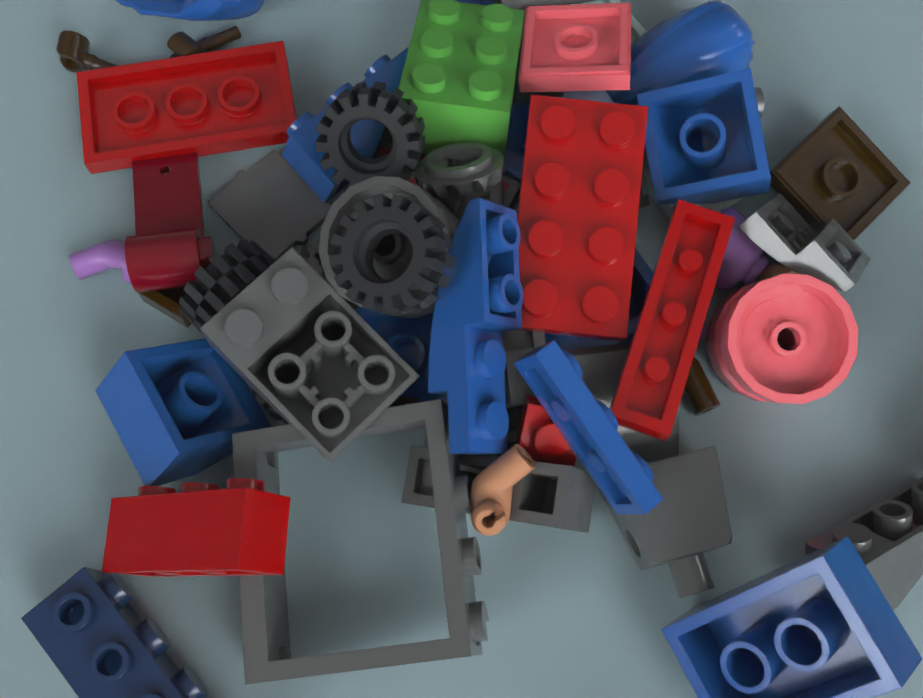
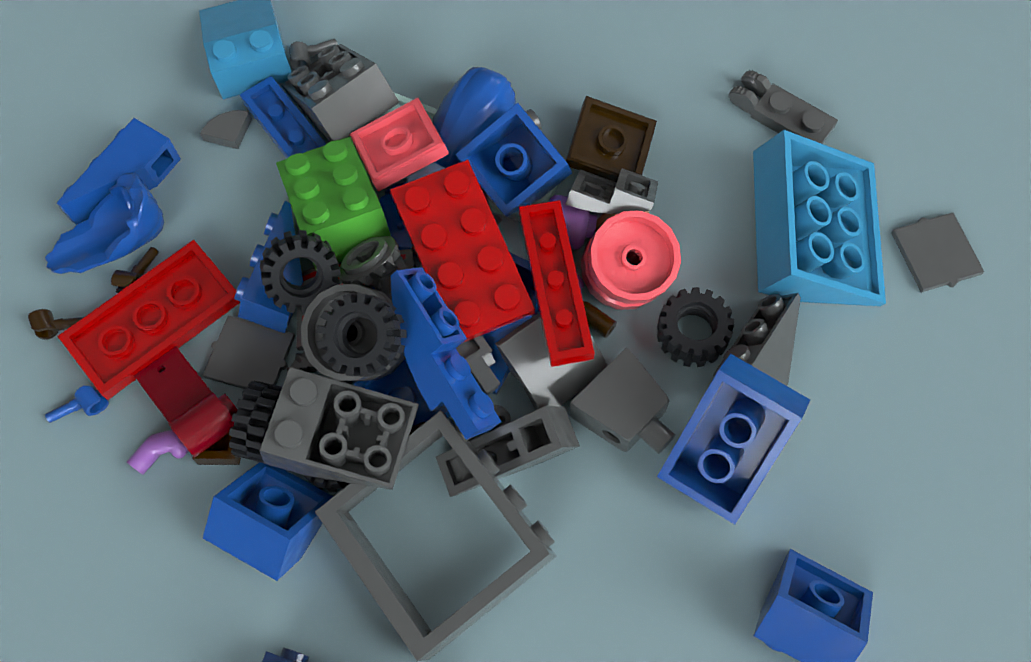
camera: 25 degrees left, 5 degrees down
(67, 160) = (86, 398): none -> blue hand
(198, 531) = (329, 584): red brick -> none
(493, 490) = (505, 448): nougat arm -> none
(541, 436) = (519, 394): red plate -> none
(589, 429) = (543, 377): blue plate -> none
(841, 446) = (705, 307): none -> black tyre

